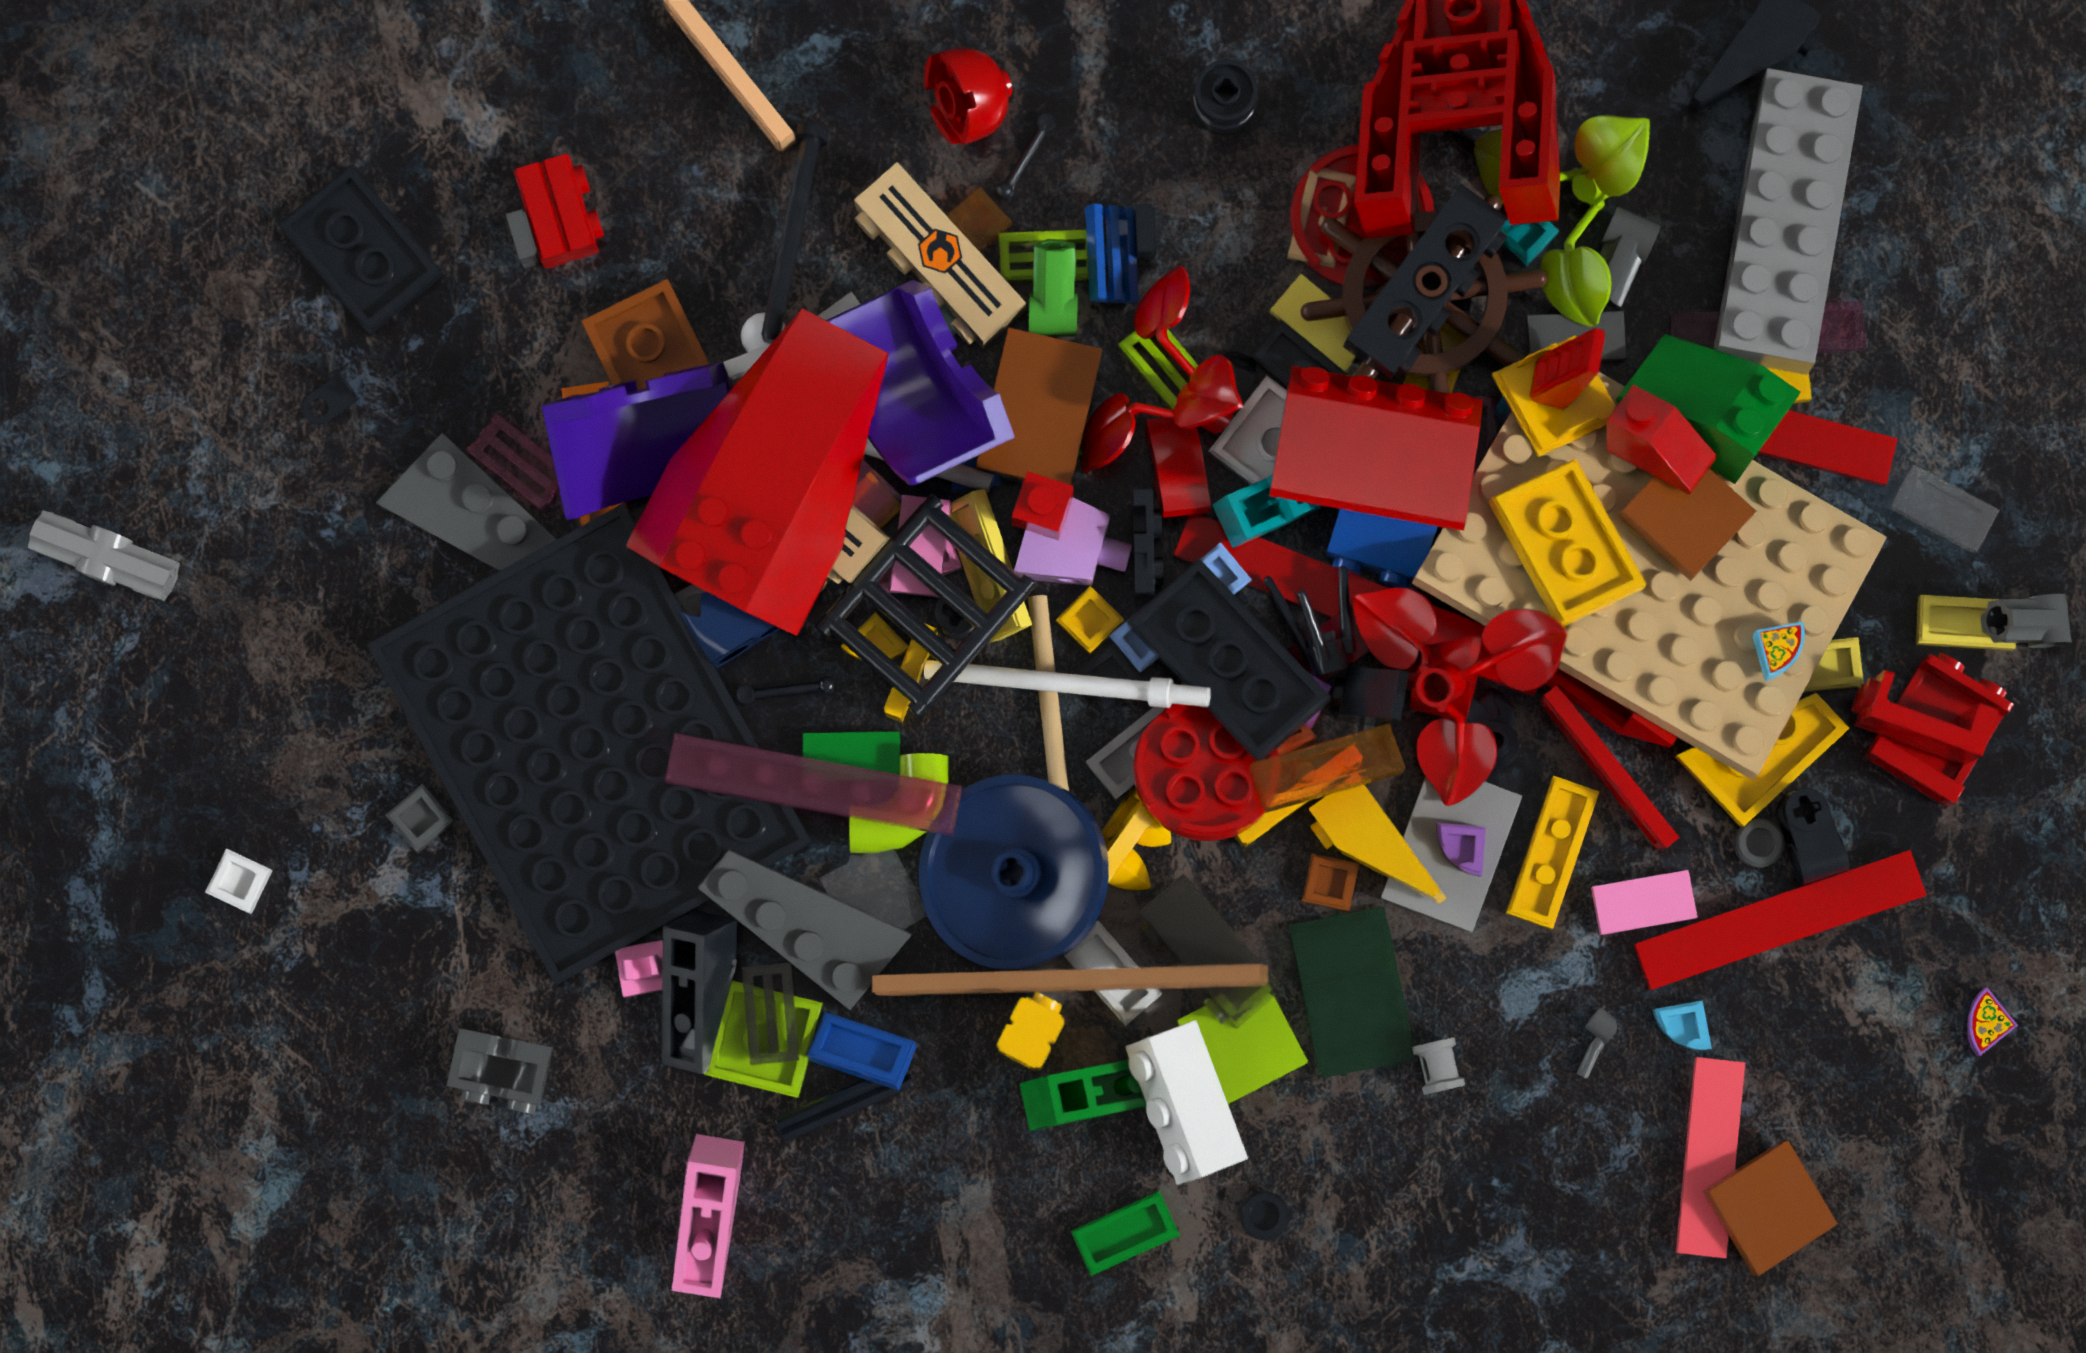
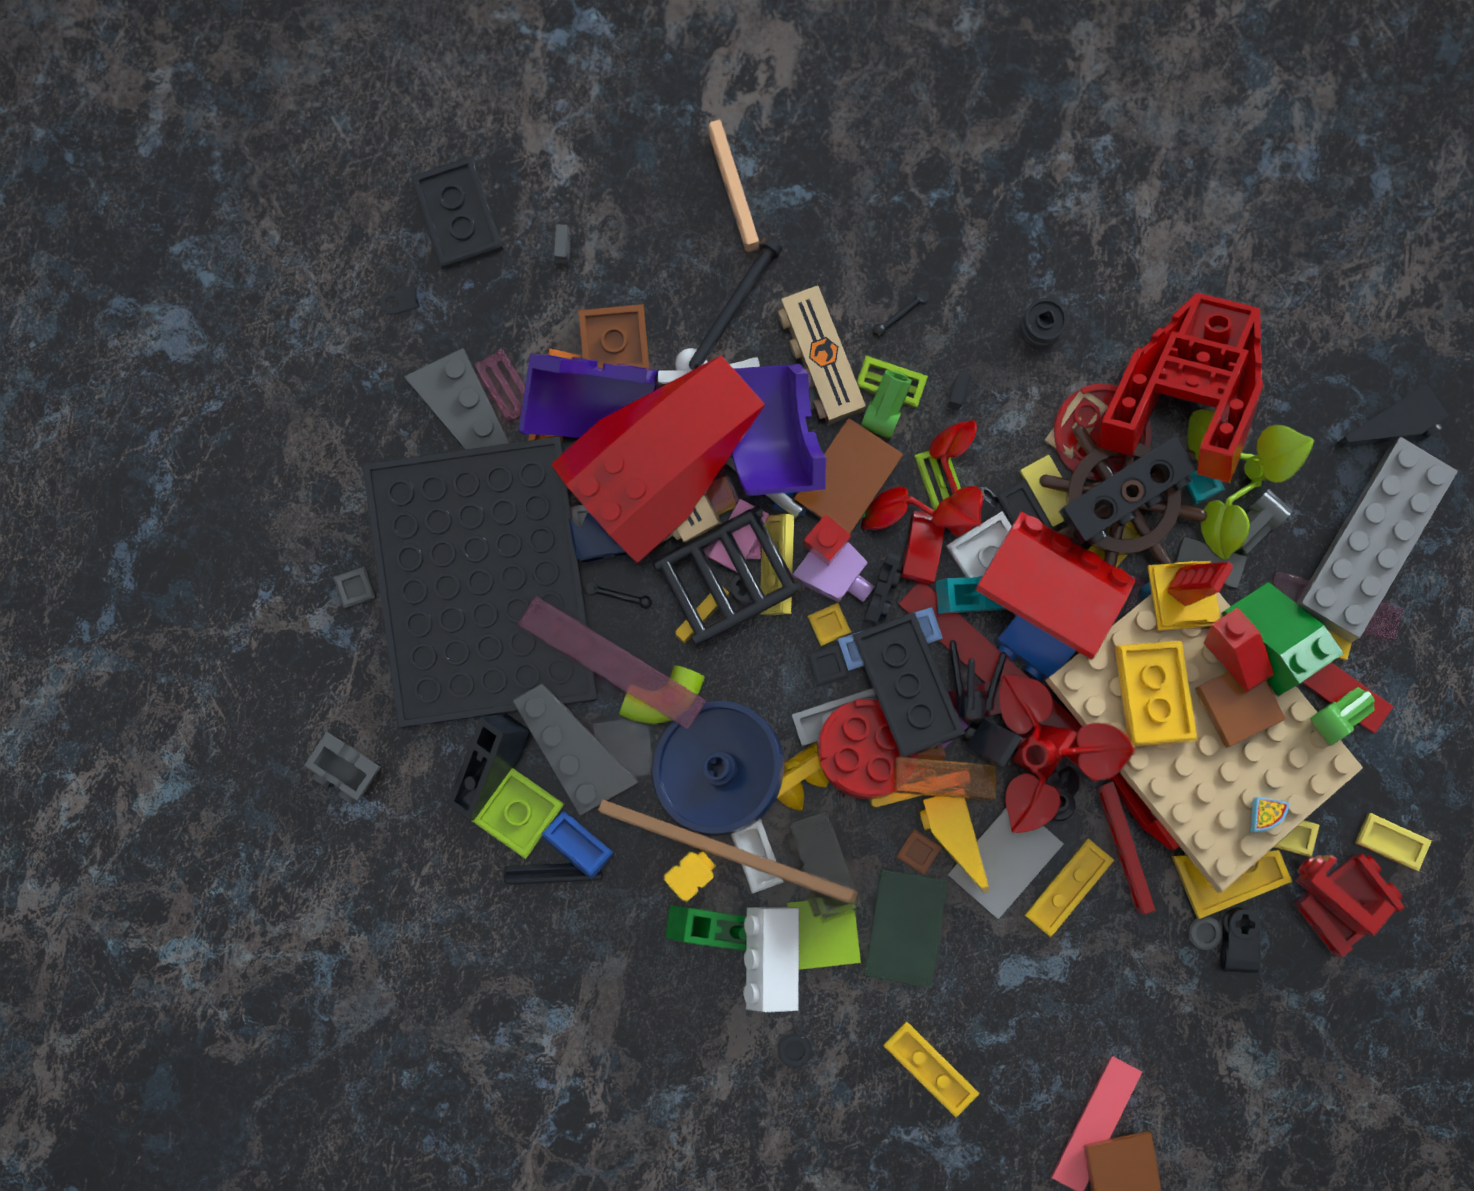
camera: 15 degrees right, 0 degrees up
(103, 555) = (219, 344): light grey piece -> none
(238, 881) = (224, 583): white tile -> none
(558, 211) = (590, 234): red brick -> none
(641, 968) = (456, 737): bright pink tile -> none
(707, 1215) = (438, 912): bright pink slope -> none
(774, 1054) = (528, 799): clear smoke tile -> none
(859, 749) = (652, 652): green tile -> none
(881, 636) = (692, 584): yellow tile -> none
(969, 93) = (880, 258): red cylinder -> none
(979, 219) = (856, 342): clear orange tile -> none
(1048, 700) = (784, 660): tan bar -> none
(1118, 254) = (936, 399): blue tile -> none
(1125, 1233) = (701, 1027): green tile -> none
(1158, 692) = (854, 687): white bar -> none
(1438, 1066) = (943, 997): light grey bush -> none
(1458, 1170) = (931, 1069): none -> yellow tile
(1462, 846) = (1013, 862): medium lavender tile -> none
(1603, 1027) = (1059, 1014): dark grey hand -> none
(1644, 902) = (1116, 942): bright pink tile -> none
(1685, 1025) = (1112, 1032): medium azure tile -> none
(1779, 920) = (1199, 988): red tile -> none
(1829, 481) = (1340, 717): none -> bright green piece
(1944, 509) = (1406, 763): clear tile -> none
(1987, 1022) = (1309, 1106): tile -> none
(2035, 620) = (1437, 857): dark grey piece -> none

